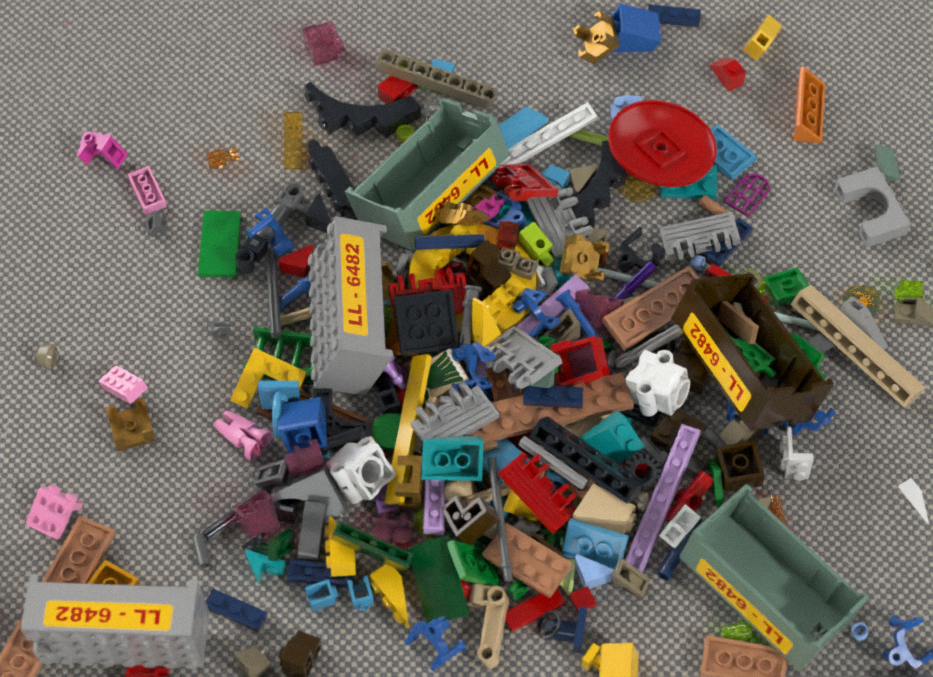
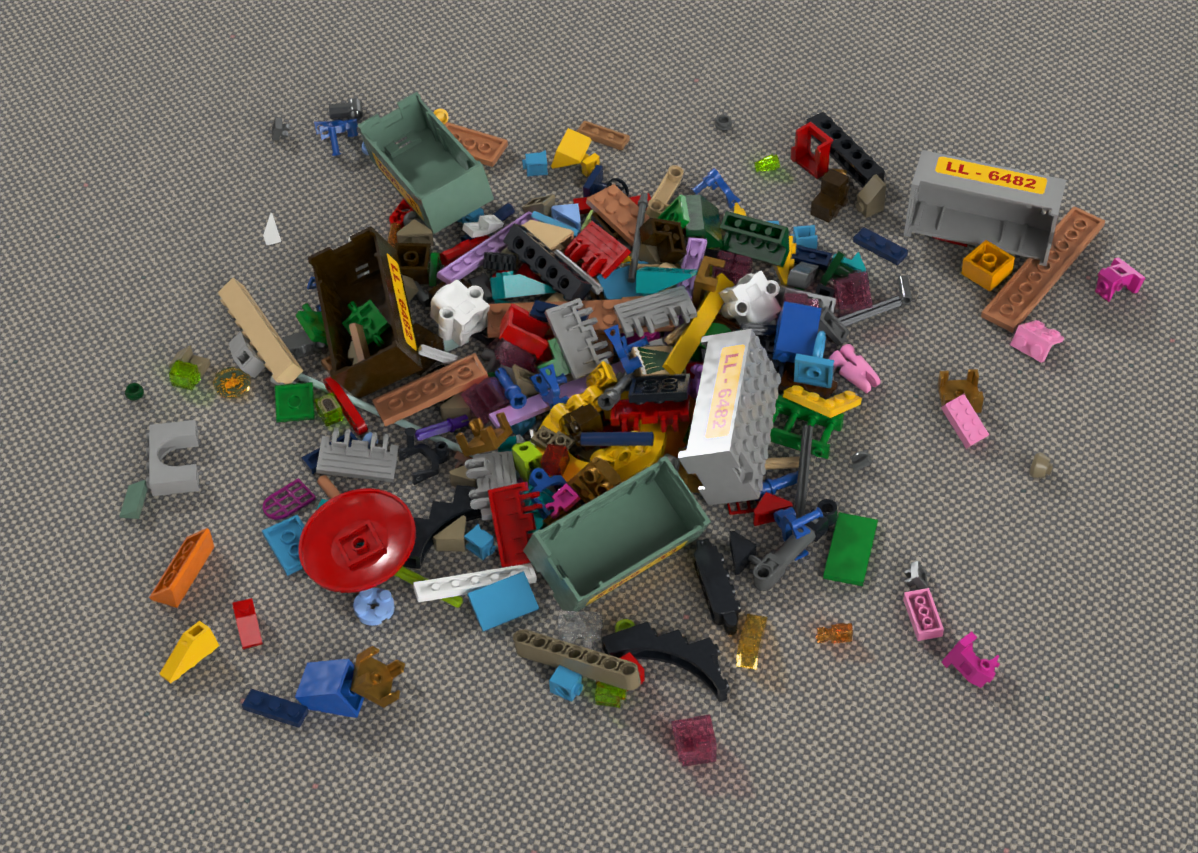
camera: 165 degrees left, 10 degrees down
(655, 645) = (535, 164): none -> dark azure window

